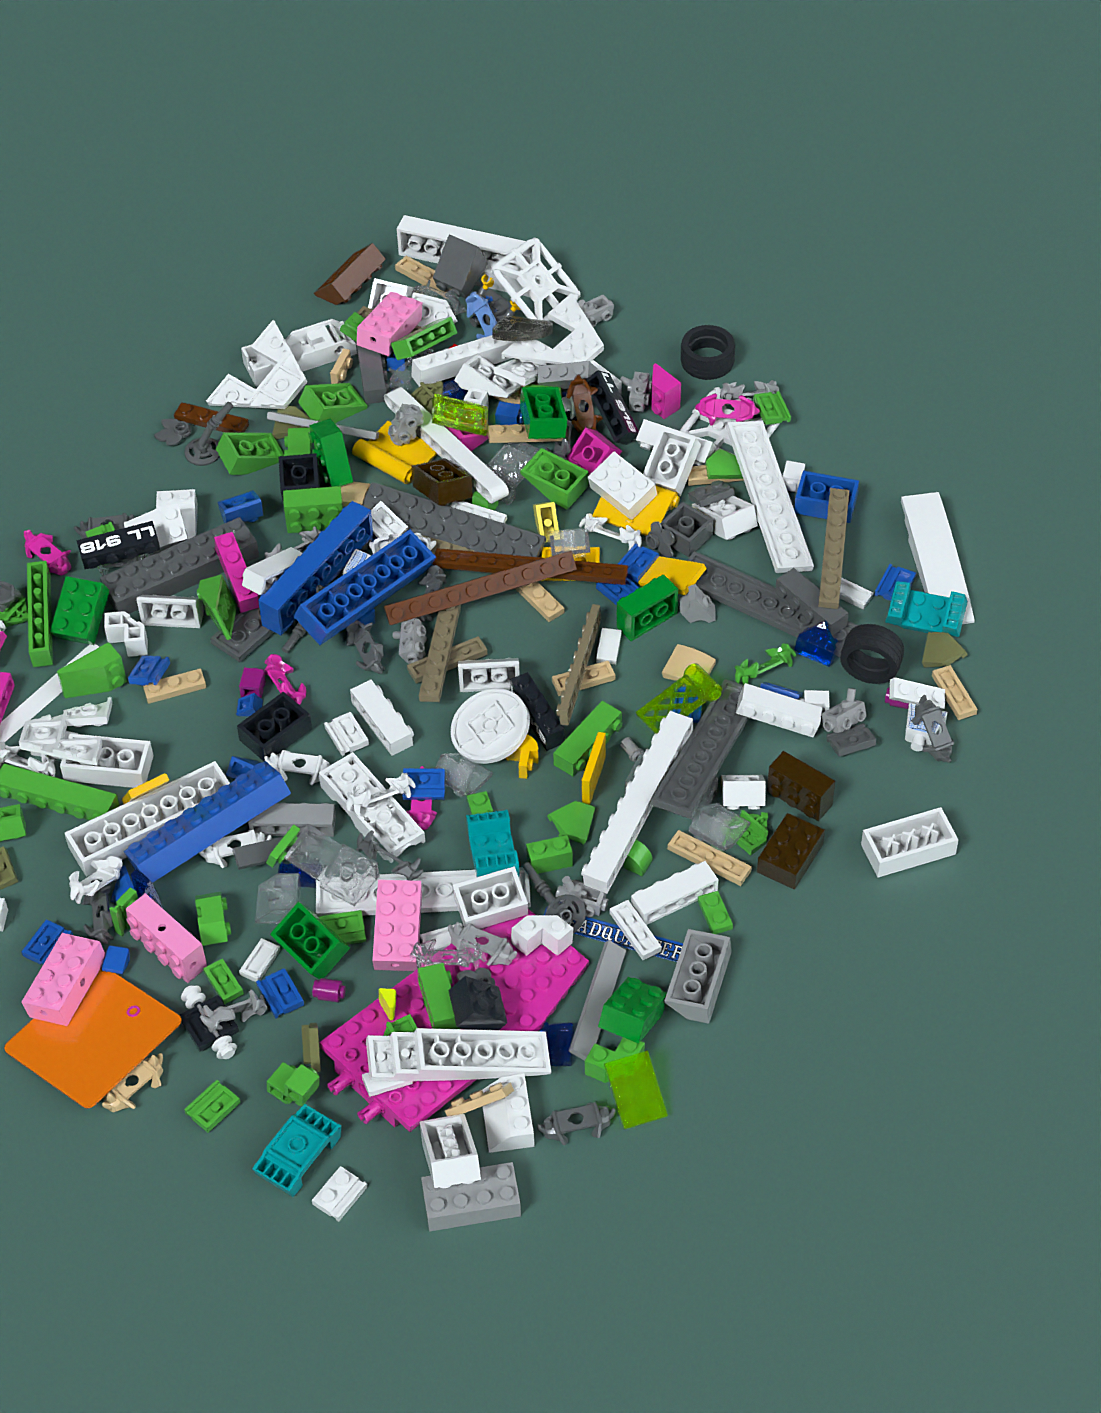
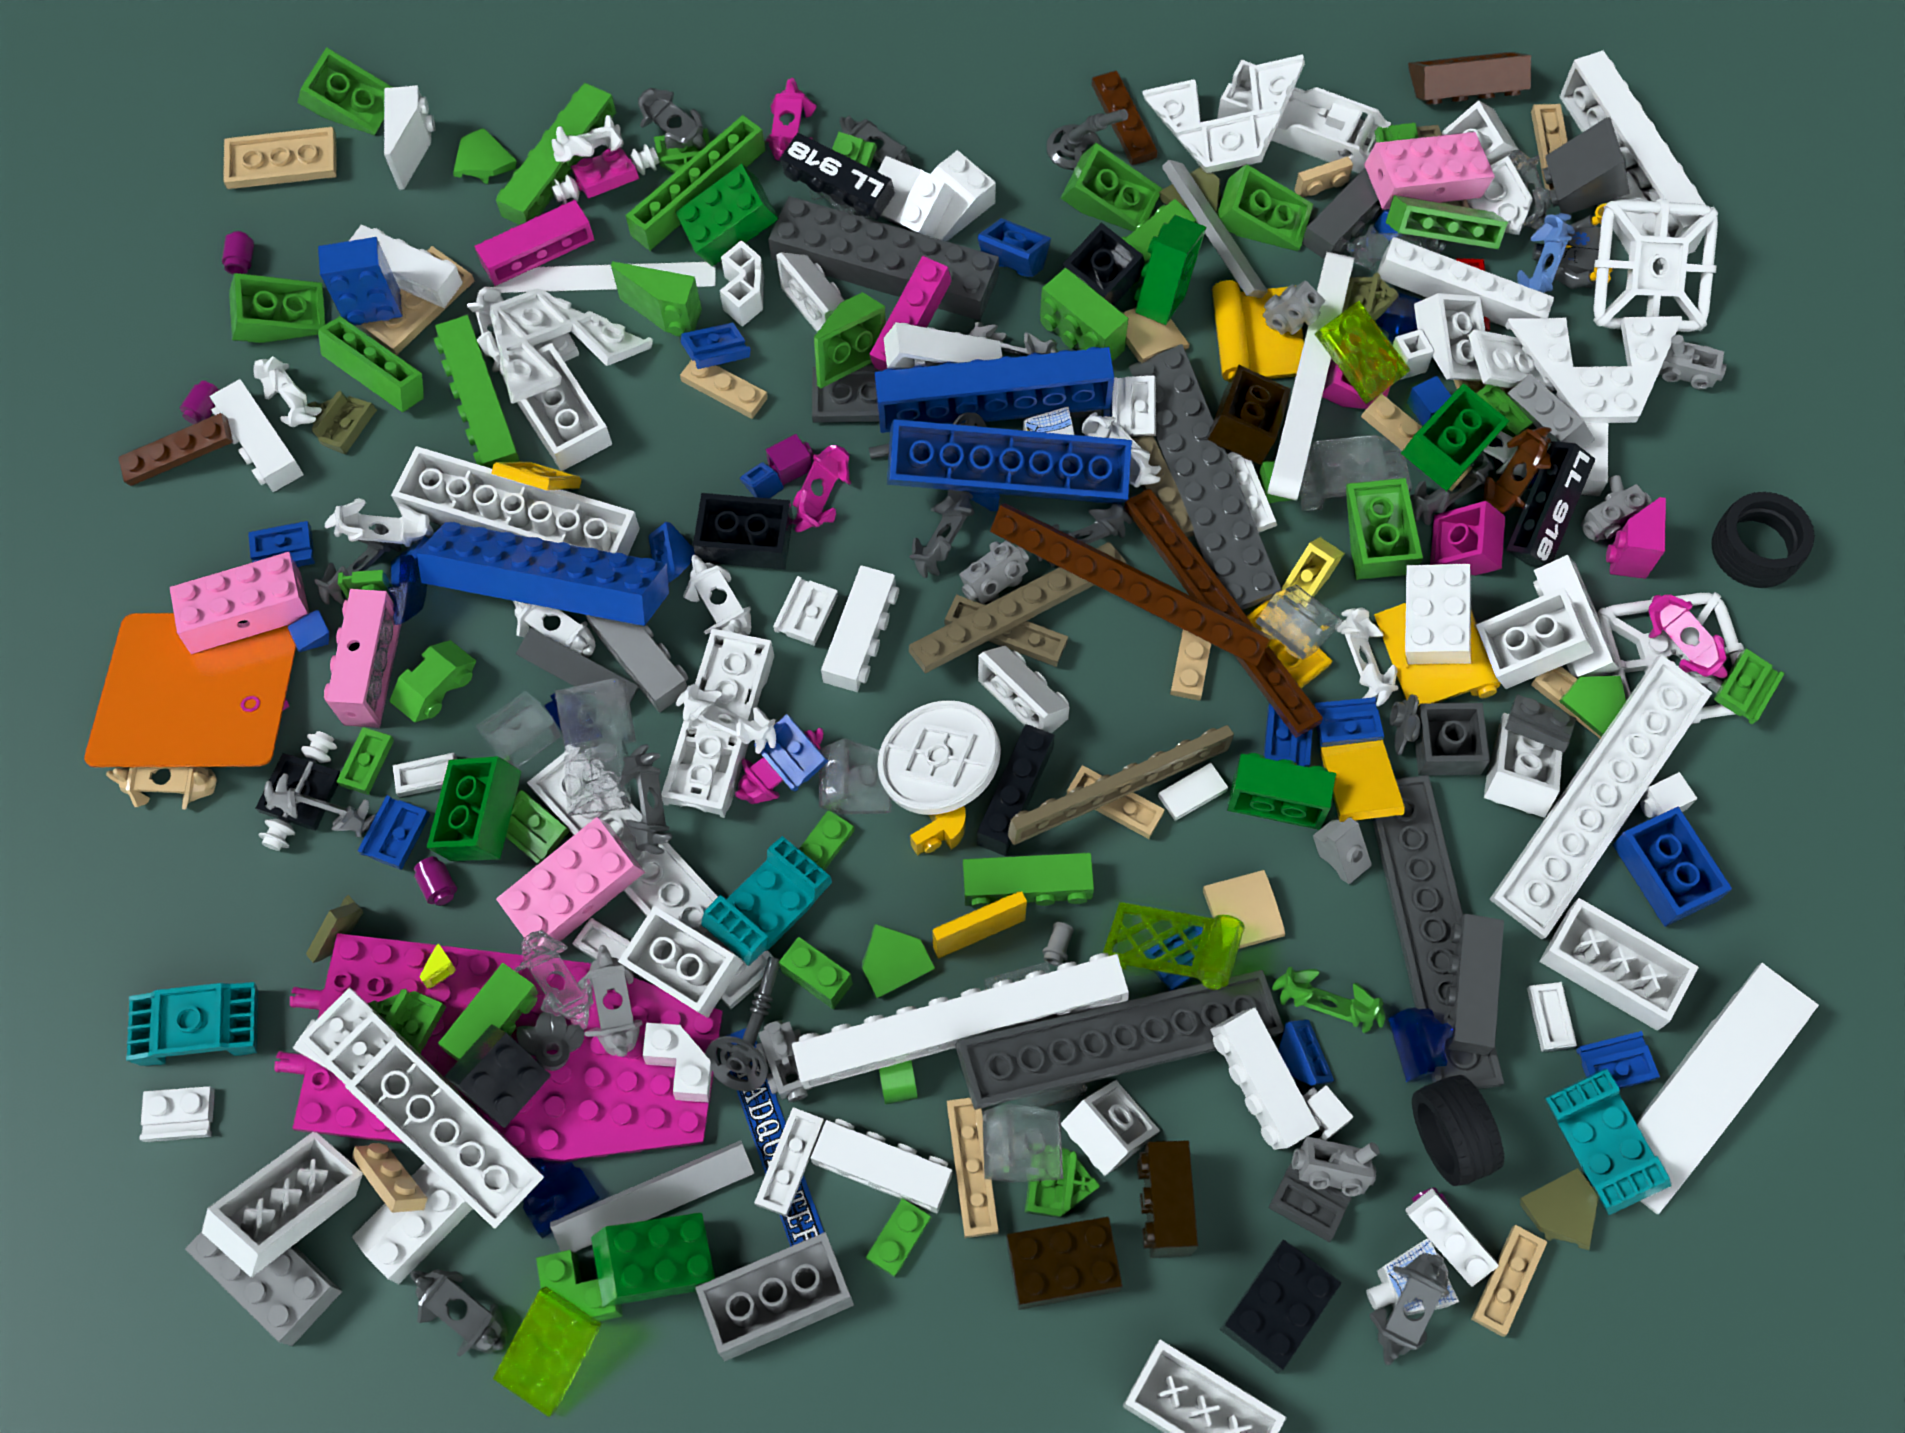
camera: 50 degrees right, 15 degrees up
(173, 431) = (1070, 98): dark grey plate -> none
(212, 1106) = (193, 884): bright green plate -> none
(287, 841) = (565, 678): bright green plate -> none
(293, 1083) = (271, 948): bright green brick -> none
(521, 329) = (1587, 322): clear smoke beam -> none
(733, 391) = (1772, 652): light grey piece -> none
(833, 548) = (1582, 946): dark tan plate -> none
(864, 546) = (1619, 964): none -> white brick
(888, 782) = (1280, 1306): none -> black brick

